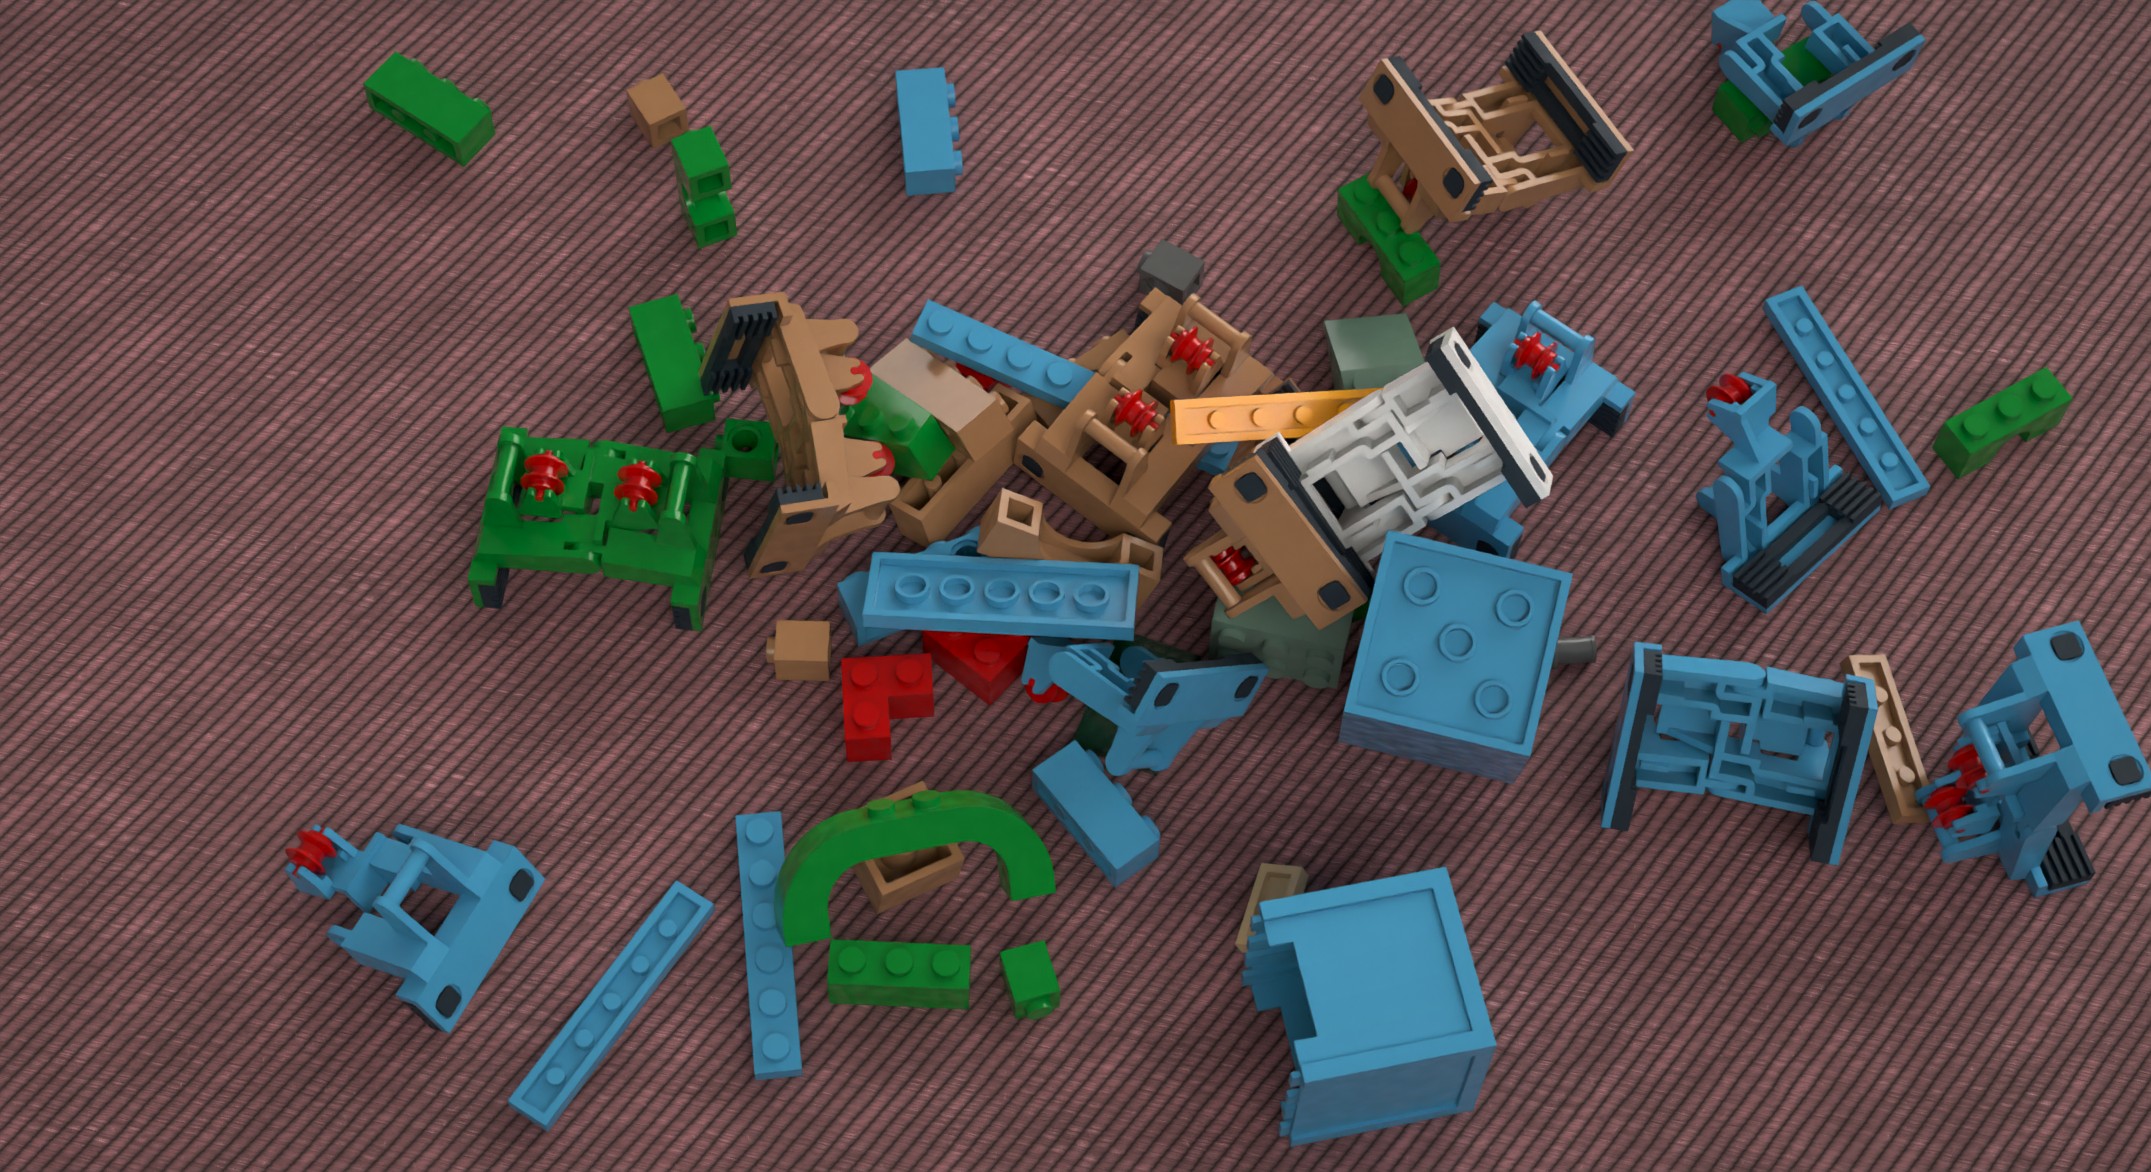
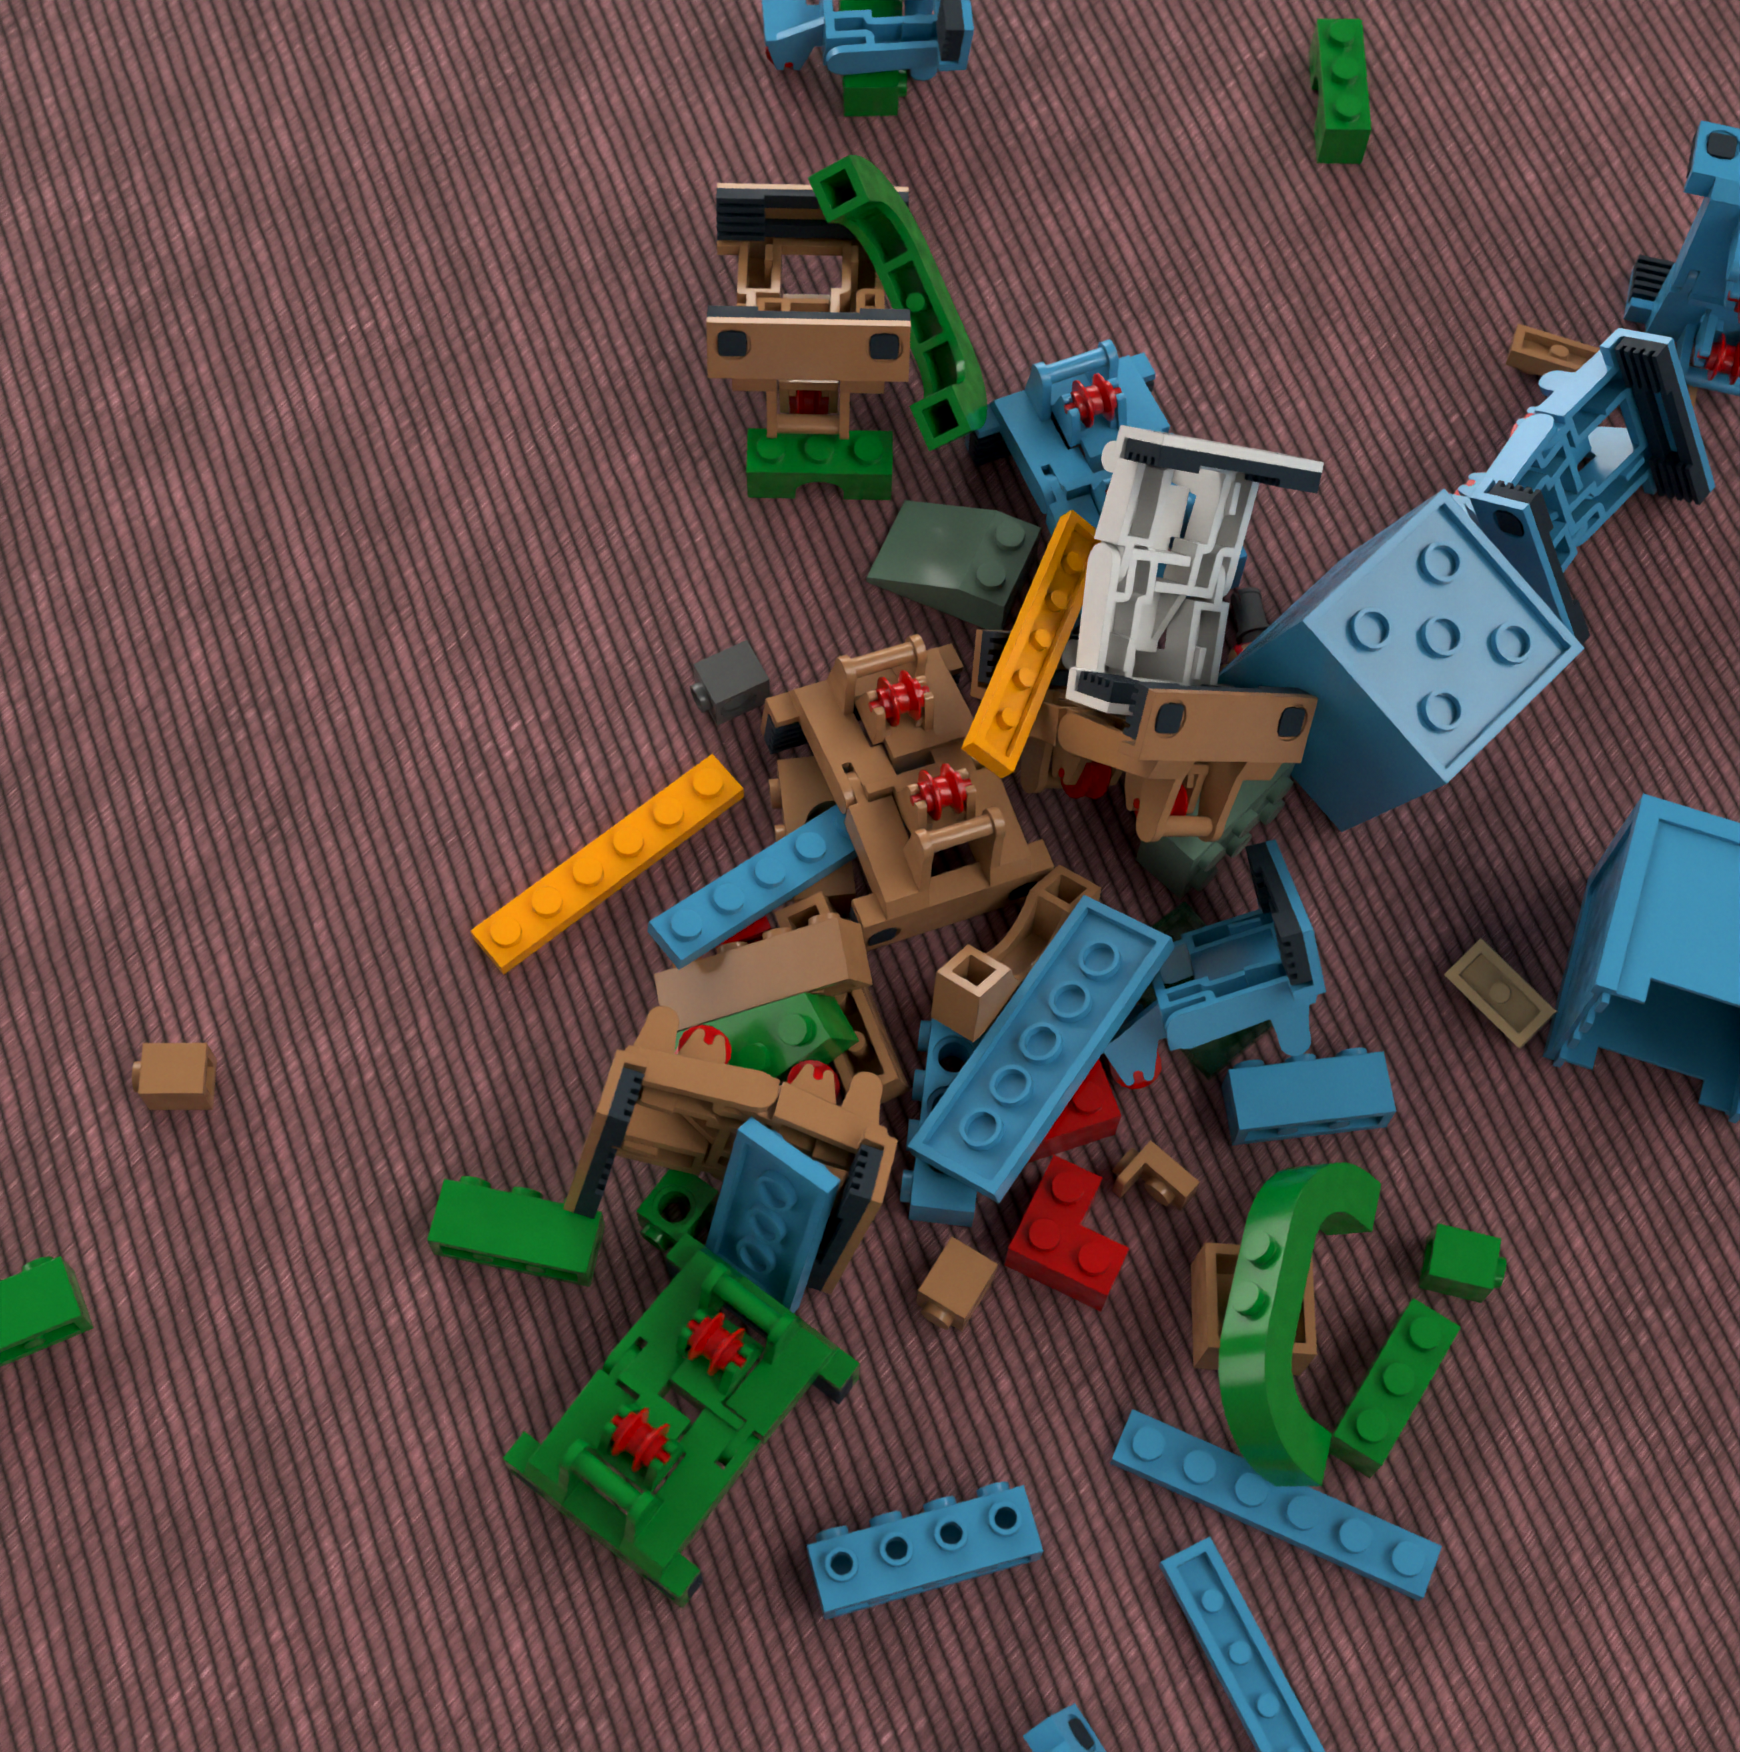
camera: 60 degrees left, 5 degrees up
(596, 726) = (923, 1550): none -> dark azure brick
(702, 186) = (334, 1074): green arch -> none
(755, 484) = (772, 1212): none -> dark azure plate
(927, 131) = (395, 816): dark azure brick -> none
(969, 738) = (1163, 1176): none -> medium nougat bracket
(983, 278) = (607, 864): none -> light orange plate
(1554, 207) = (868, 204): none -> green arch
(1822, 502) = (1337, 298): dark azure container -> none
(1846, 397) = (1231, 194): dark azure plate -> none

